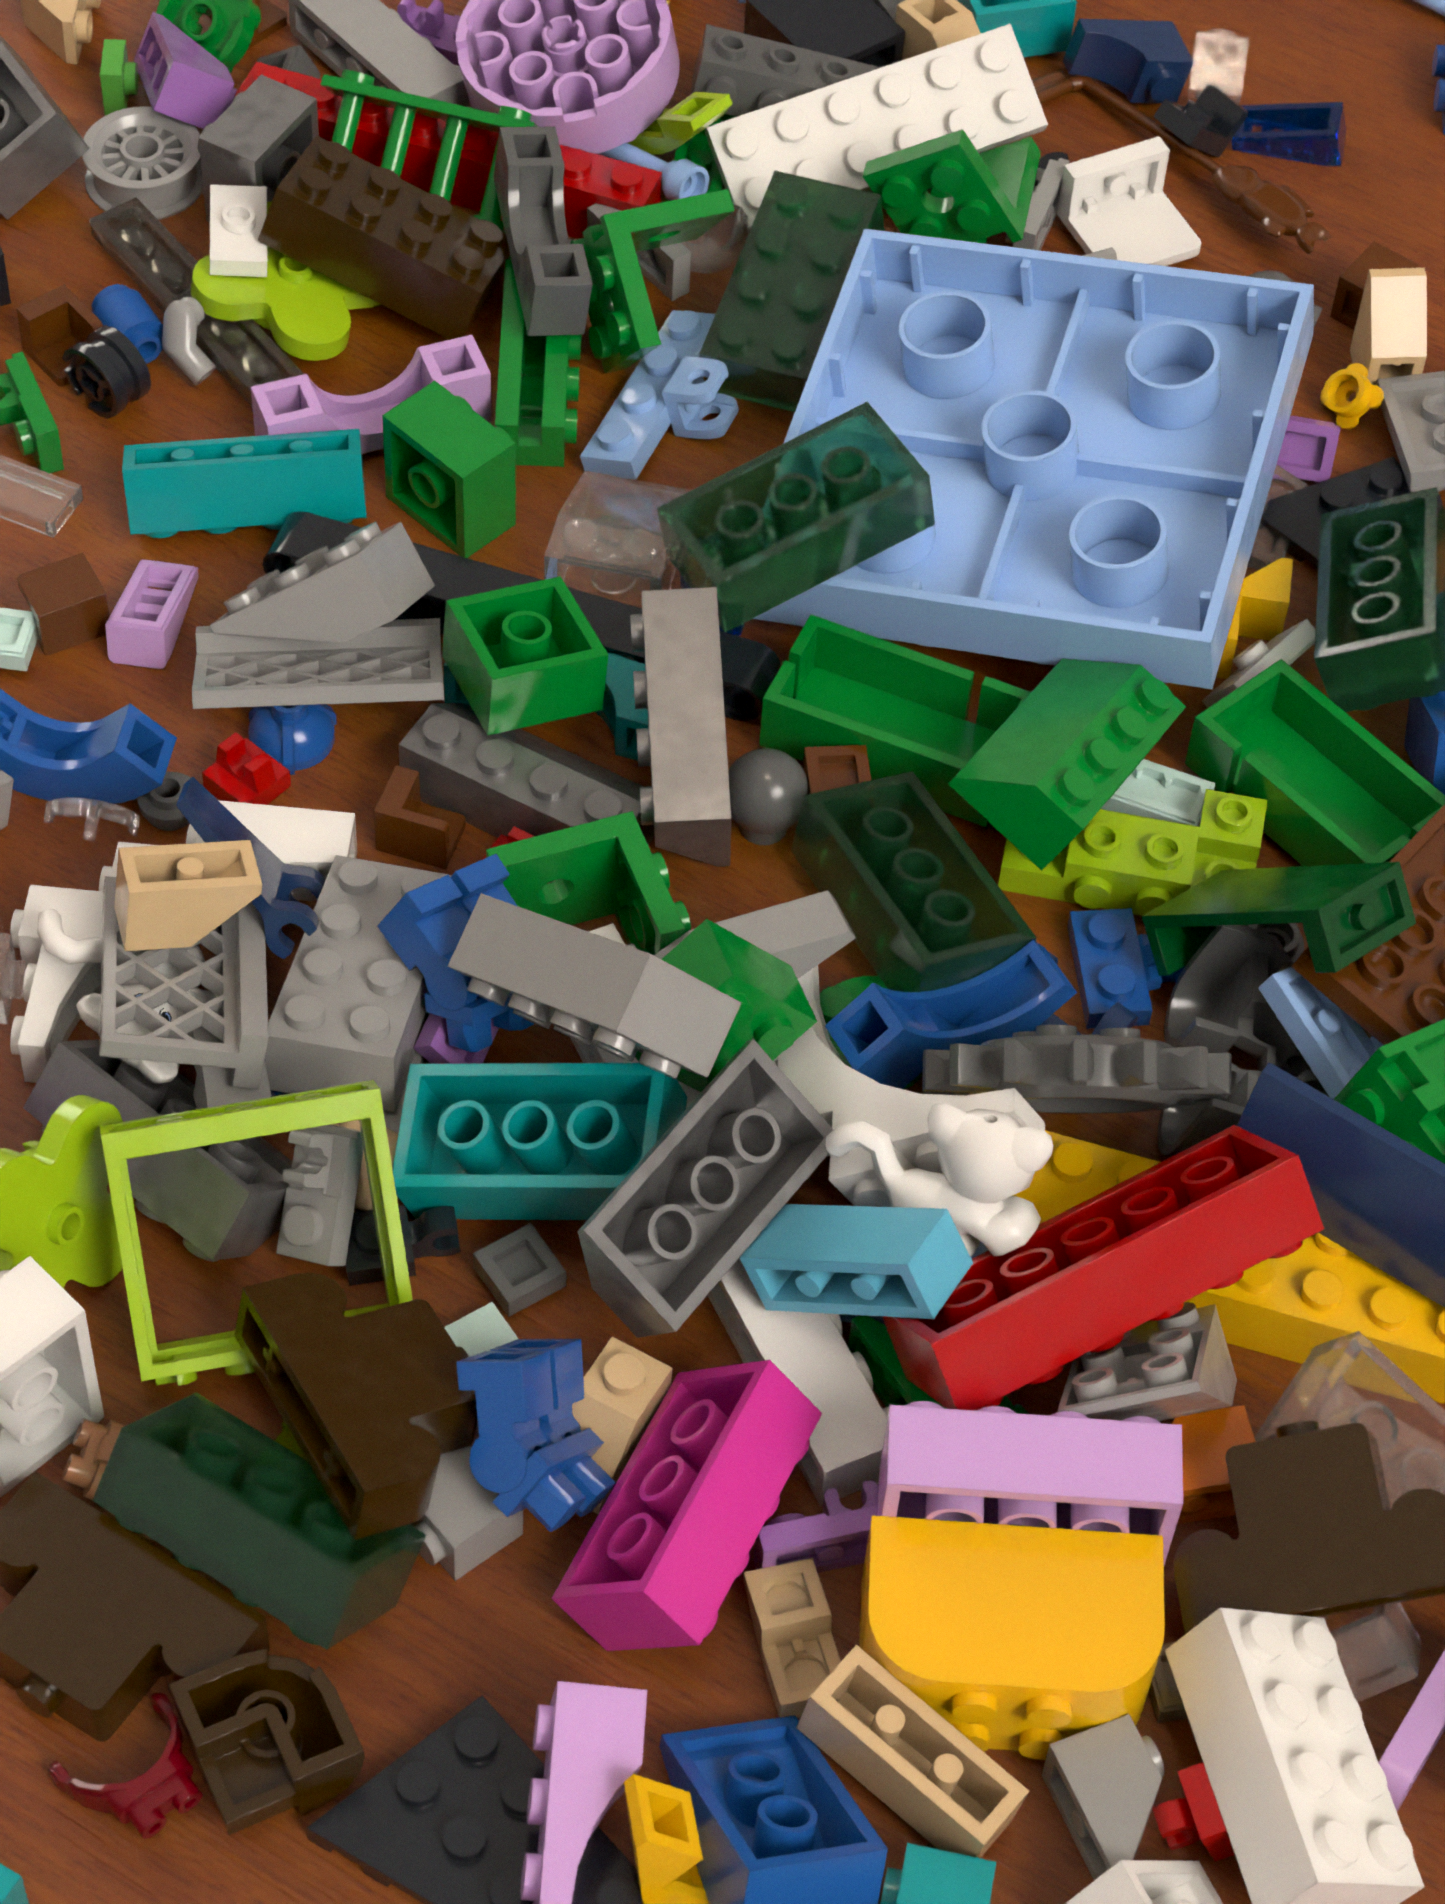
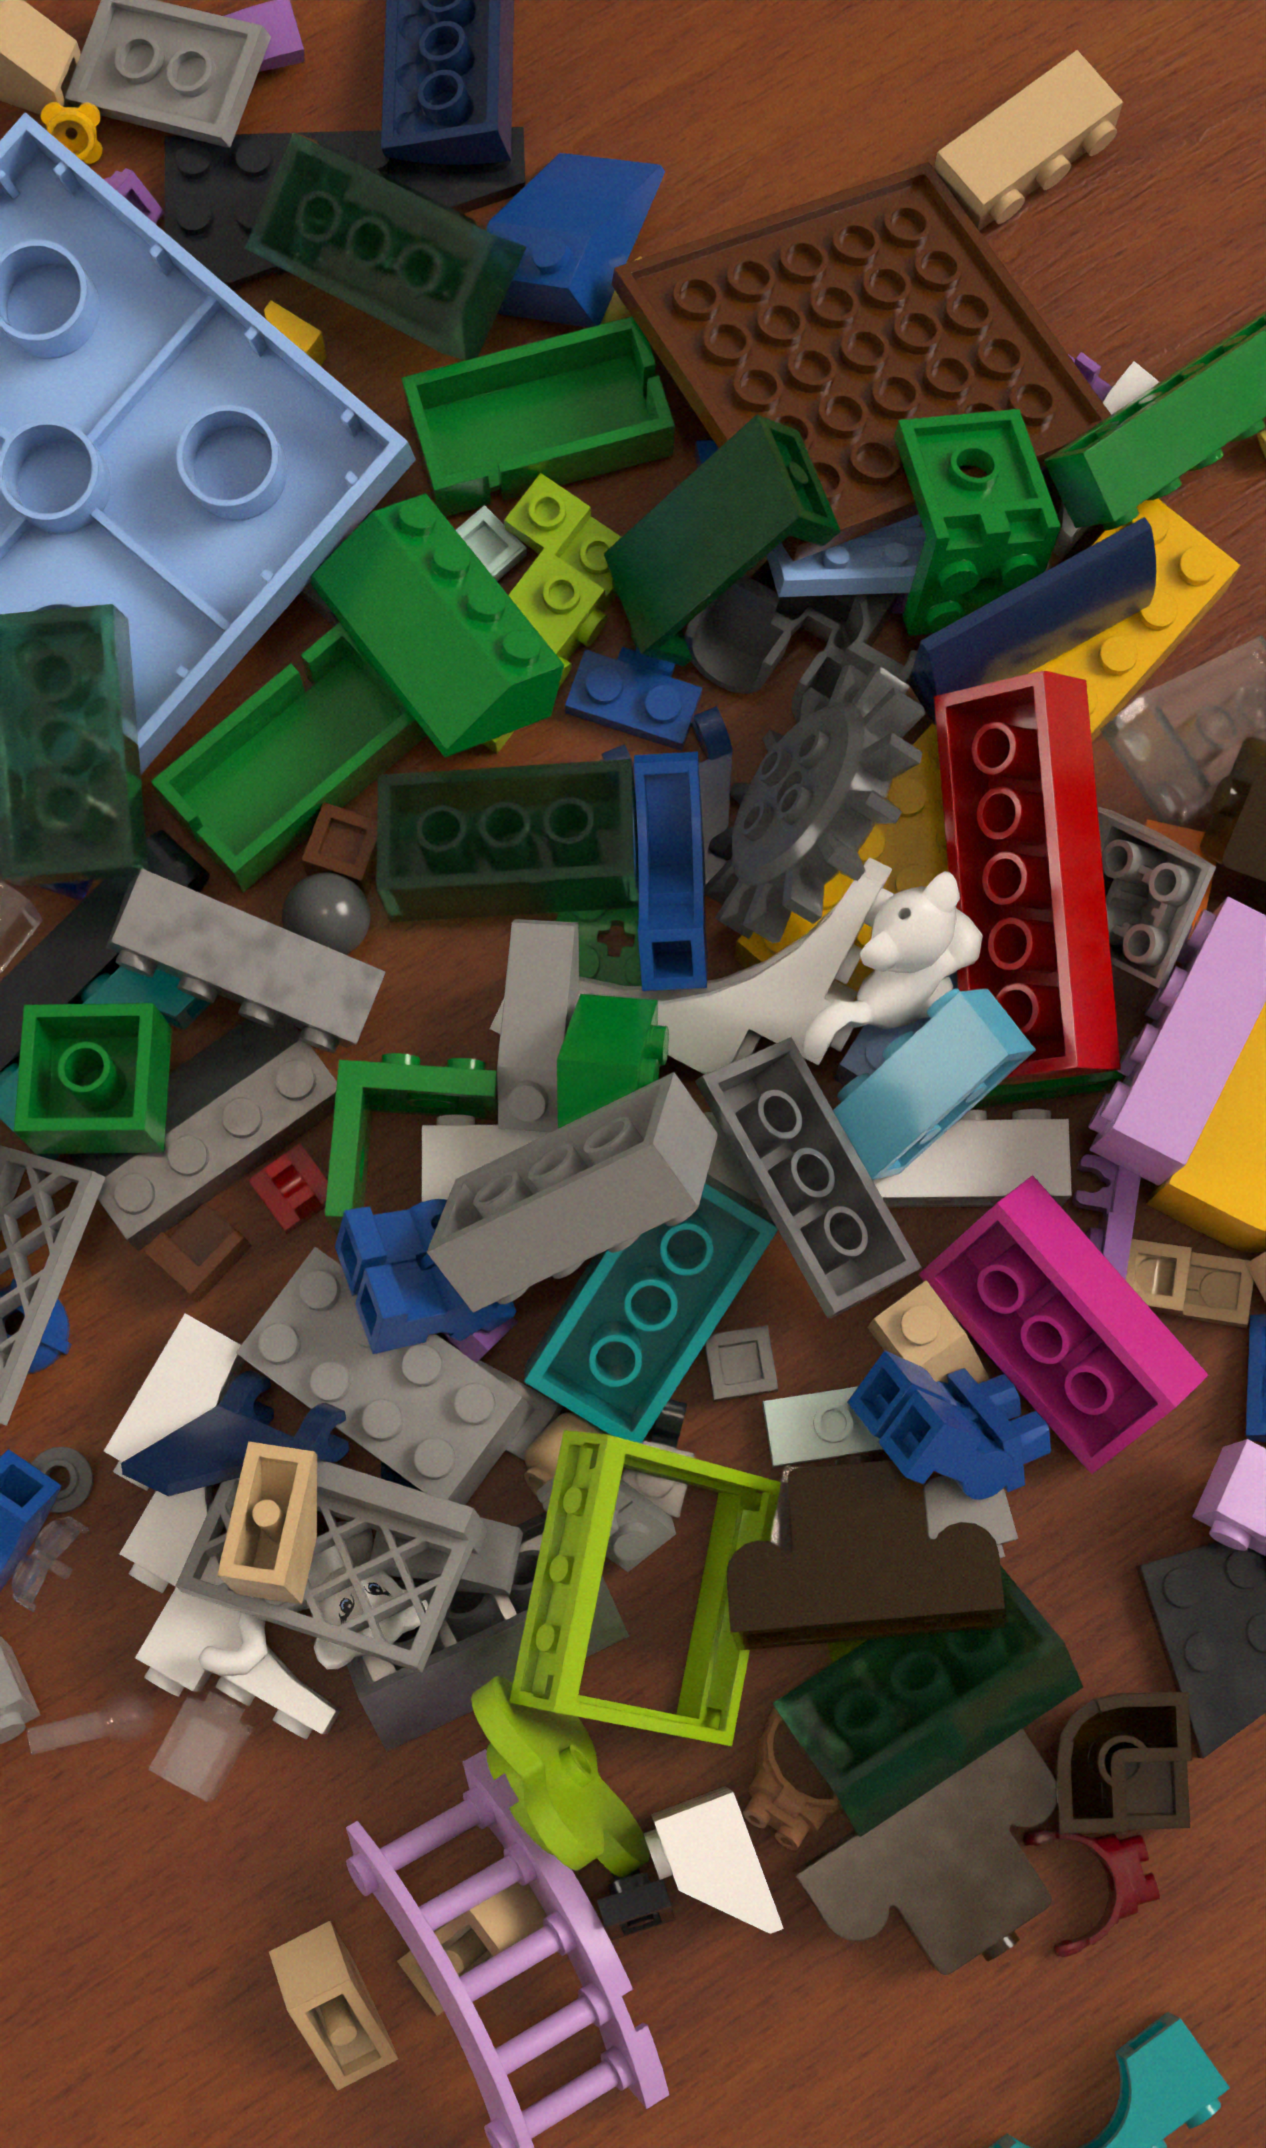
camera: 65 degrees left, 25 degrees up
(245, 773) = (64, 1394): red tile -> none
(1259, 656) = (362, 371): white plate -> none

